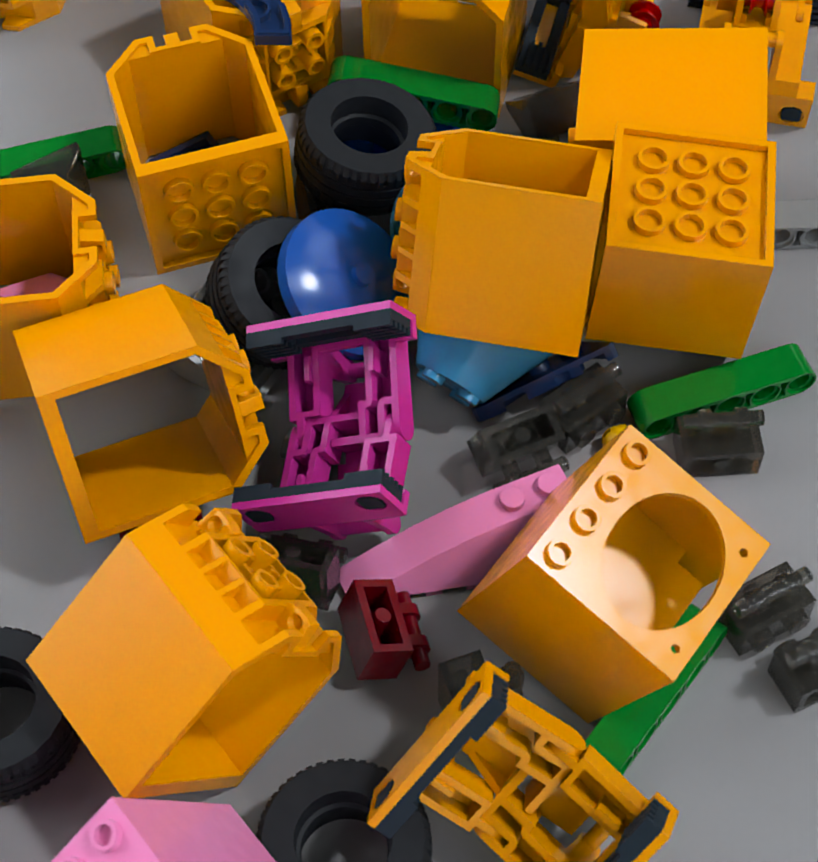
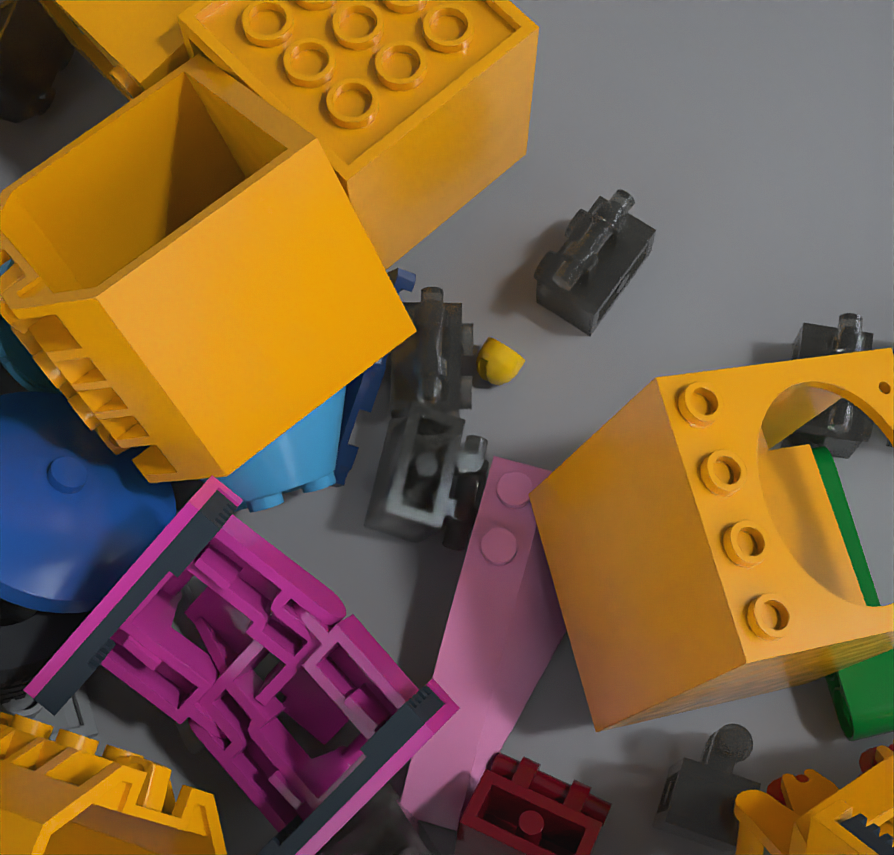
camera: 45 degrees left, 15 degrees up
(737, 383) = (530, 207): green beam -> none

